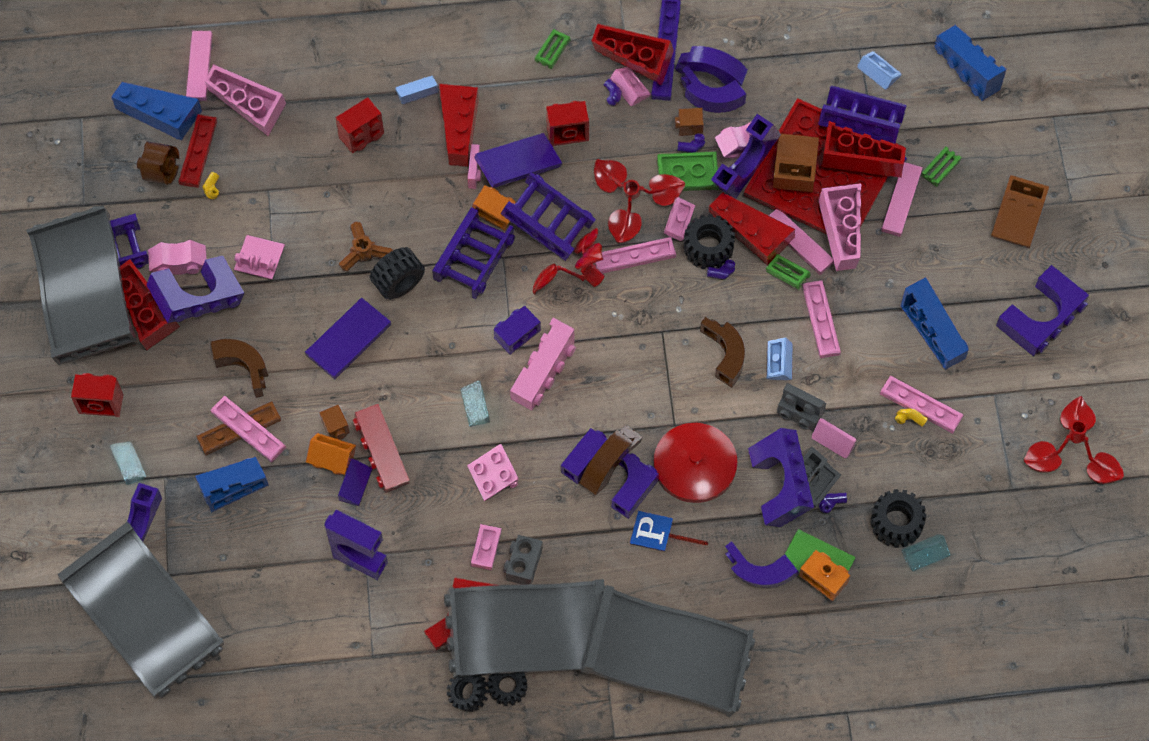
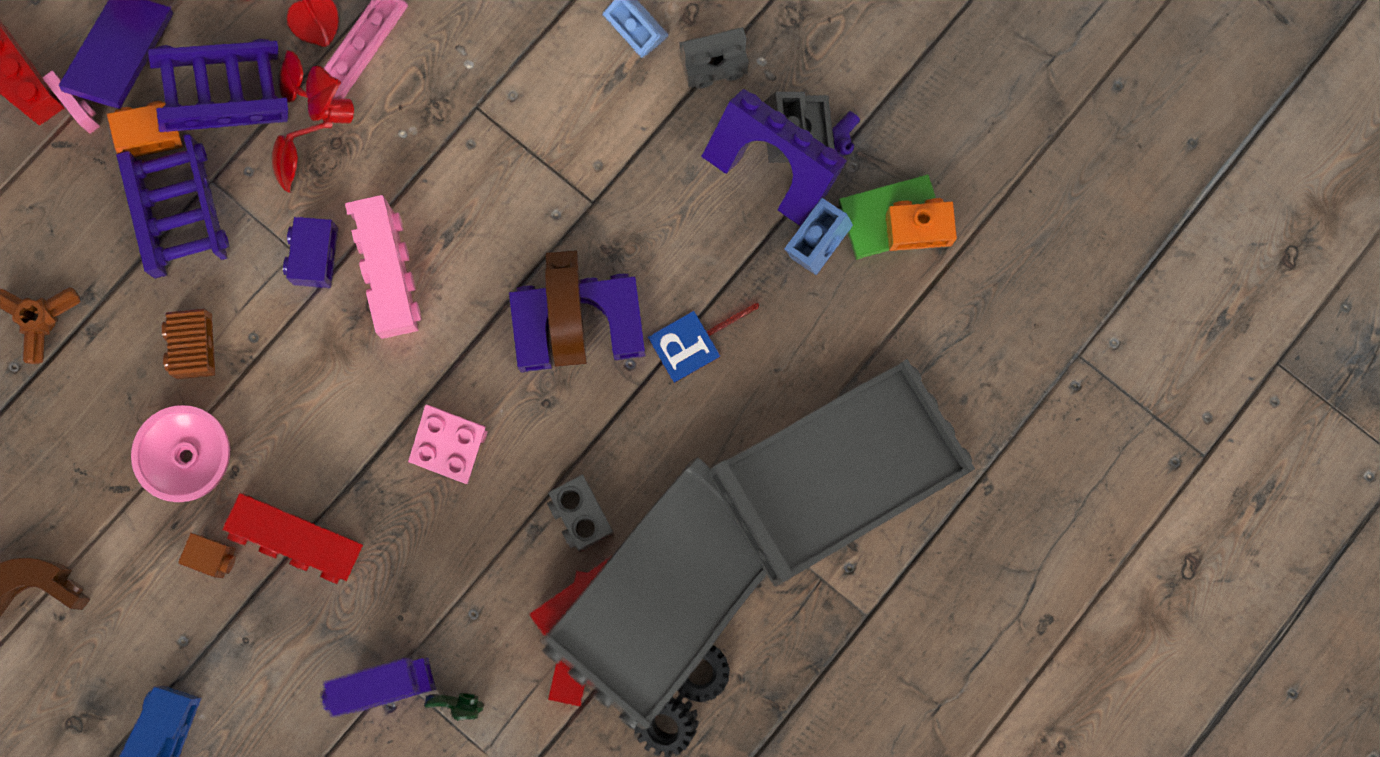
camera: 45 degrees left, 15 degrees up
(223, 436) = (98, 666): dark orange tile -> none
(248, 429) = (110, 658): bright pink tile -> none
(330, 453) = (239, 598): orange brick -> none
(348, 338) = (116, 413): dark purple tile -> none
(354, 483) = (300, 603): dark purple slope -> none
(366, 355) = (160, 451): none -> bright pink dish
(383, 597) = (462, 707): none -> dark green plate
(397, 273) = (106, 312): black tyre -> none
(420, 321) = (189, 344): none -> dark orange brick
(475, 404) = (348, 383): clear light blue slope -> none
(486, 547) = (523, 537): bright pink plate -> none
(695, 462) = (657, 224): red dish -> none
(733, 346) = (573, 54): reddish brown arch -> none
(761, 576) = (865, 278): dark purple arch -> none
(768, 535) = (819, 236): none -> medium blue brick
(834, 438) = (780, 61): bright pink slope -> none
(898, 502) = (938, 66): black tyre -> none
(926, 552) = (991, 100): clear light blue slope -> none

